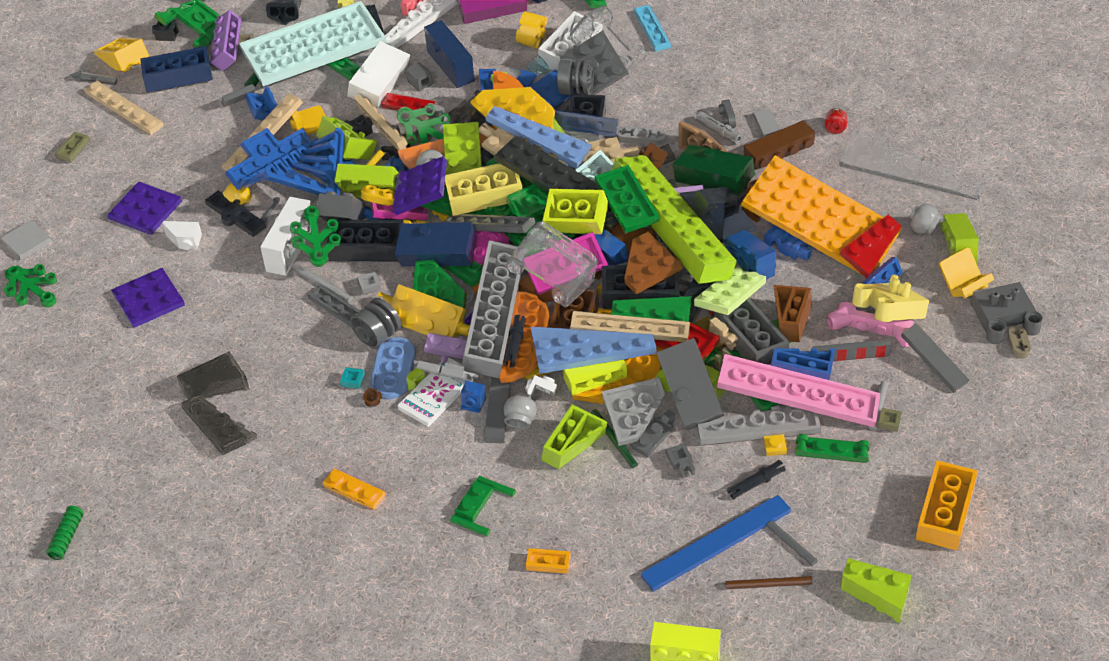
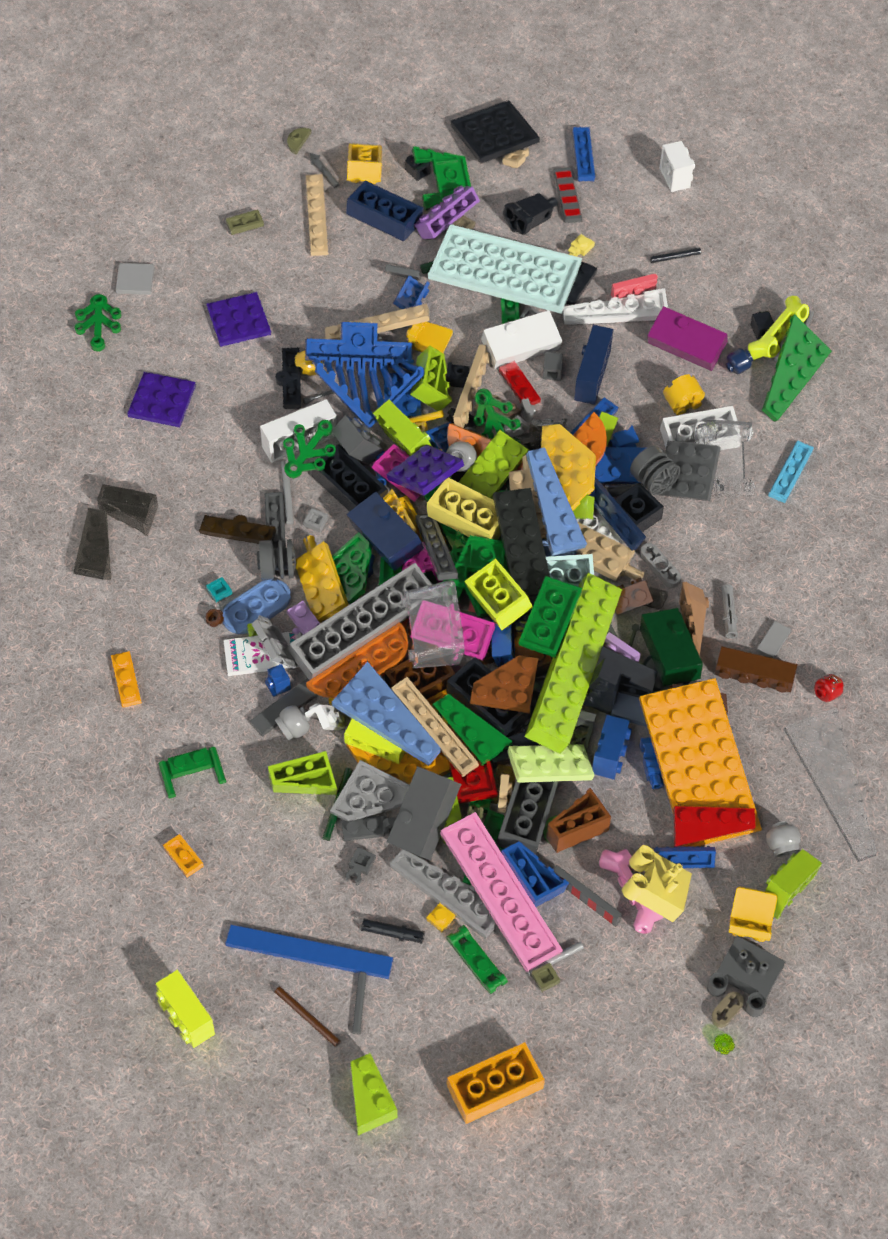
camera: 40 degrees right, 10 degrees up
(47, 73) = (297, 139): none -> olive plate
(183, 234) = (237, 366): white slope -> none
(316, 331) = (236, 529): none -> dark brown hinge
(377, 195) = (392, 450): yellow plate -> none
(516, 334) = (351, 659): black pin -> none
(537, 65) = (654, 432): clear light blue tile -> none
(728, 114) = (746, 609): dark grey plate -> none
(935, 358) = (639, 961): dark grey tile -> none
(1046, 358) = (724, 1038): none -> clear neon green plate

